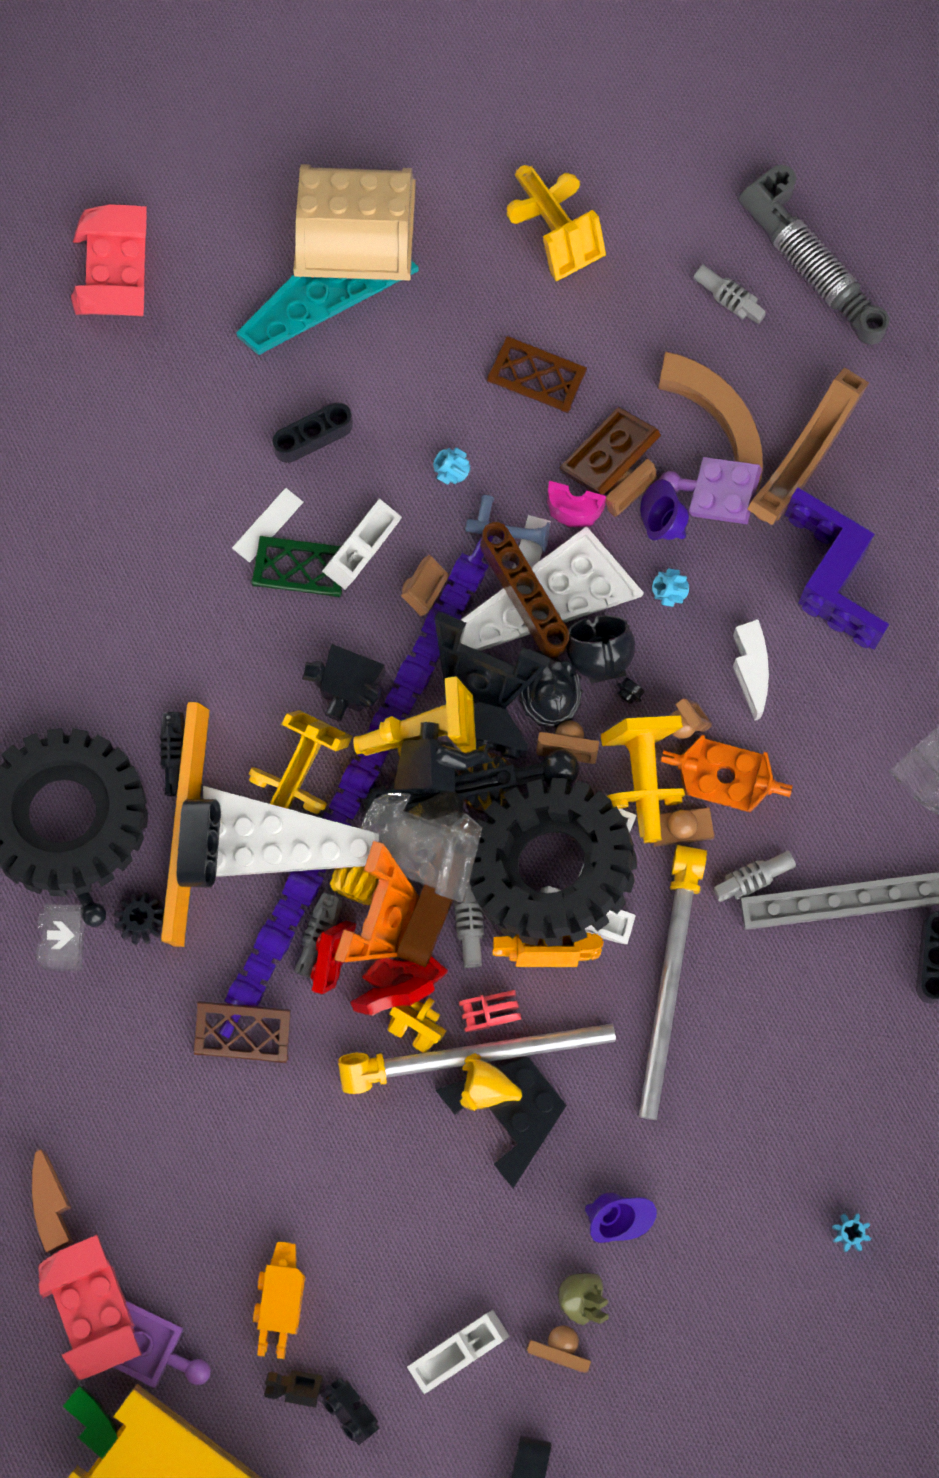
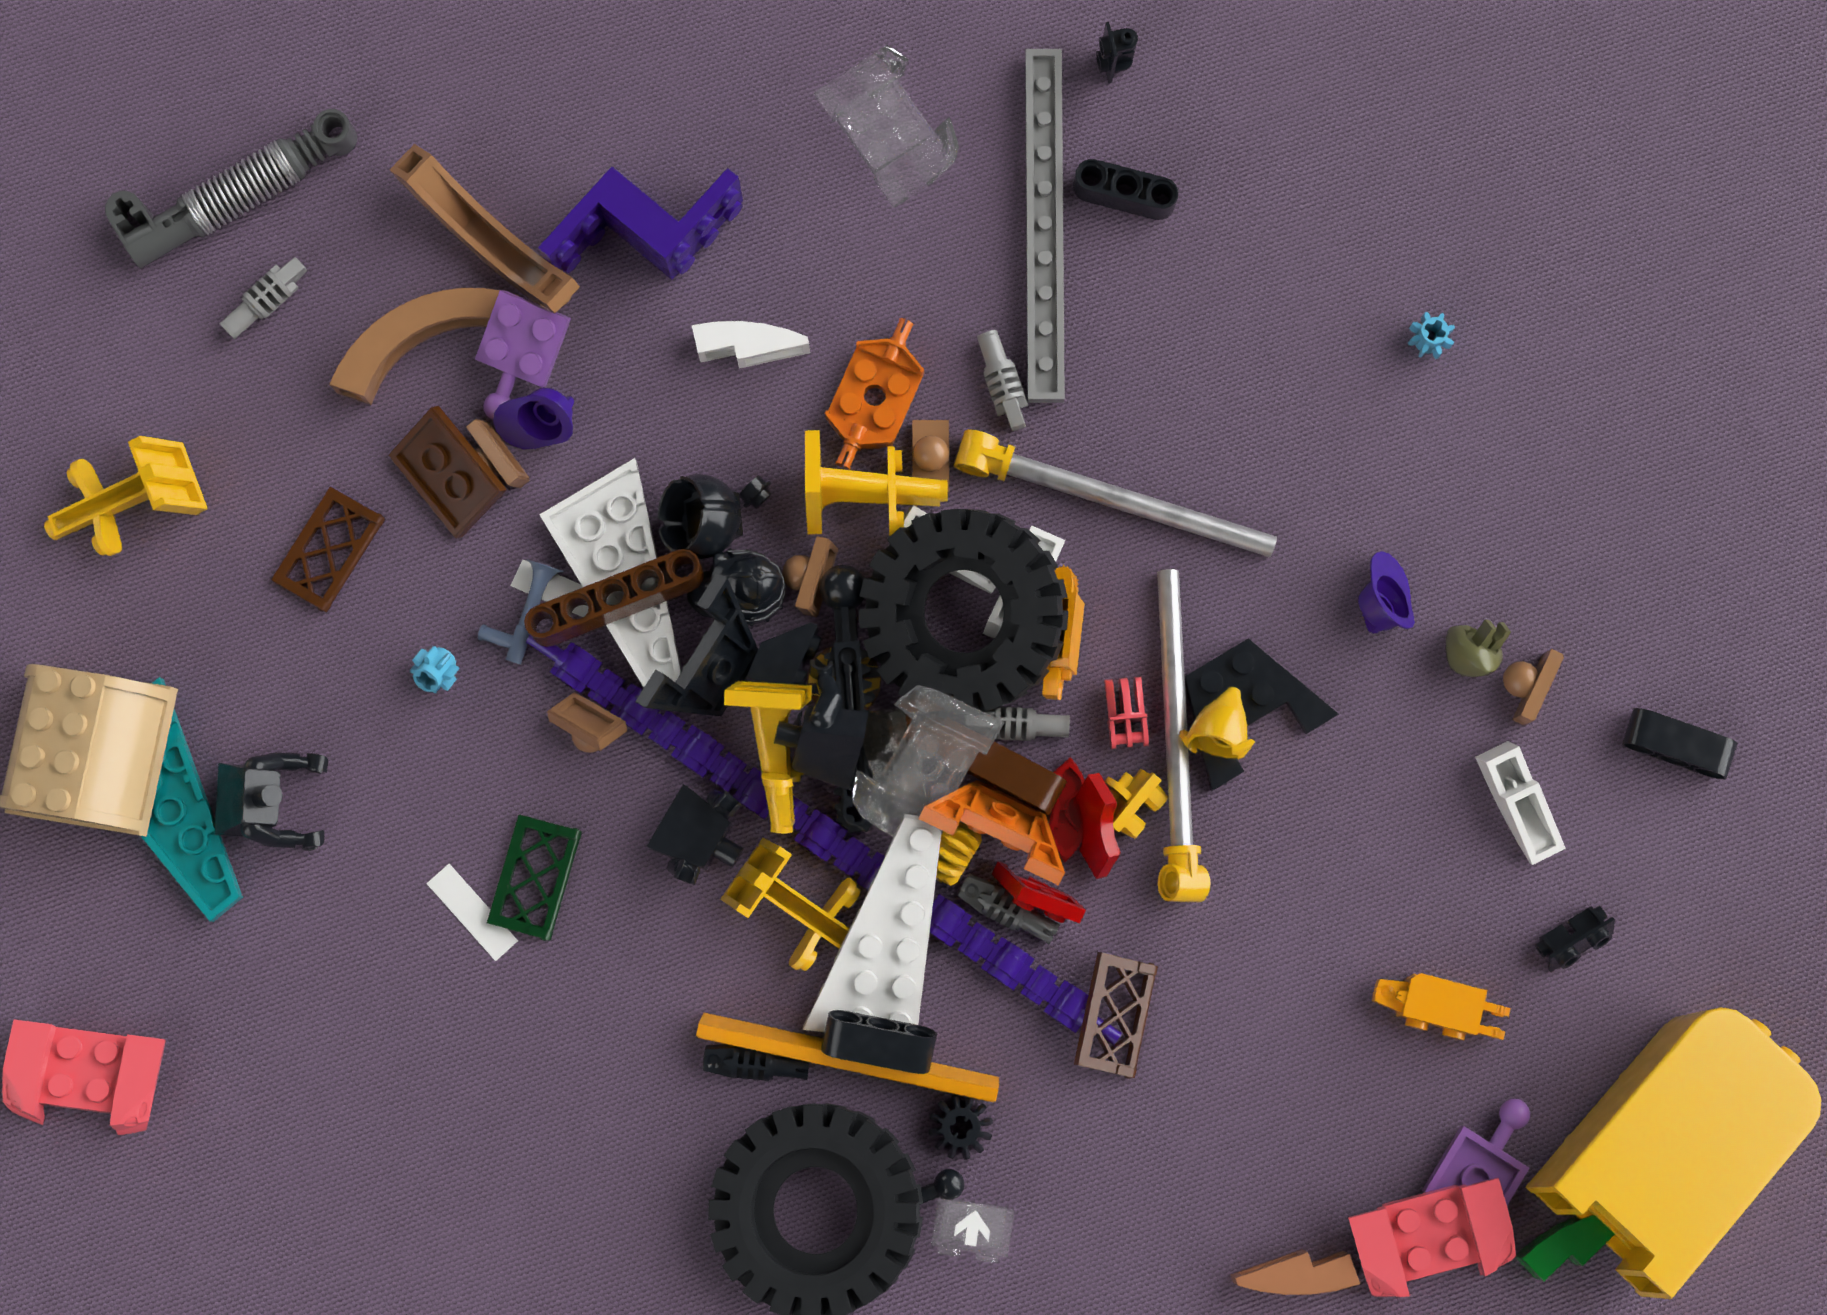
camera: 85 degrees left, 5 degrees up
(298, 1389) = (1545, 993): black plate -> none
(318, 420) = (348, 825): black beam -> none
(333, 345) = (251, 799): none -> black torso
(362, 544) = (520, 794): white slope -> none
(574, 510) = (515, 531): dark pink cylinder -> none
(670, 587) = (633, 424): medium azure gear -> none
(692, 718) = (800, 420): medium nougat tile -> none

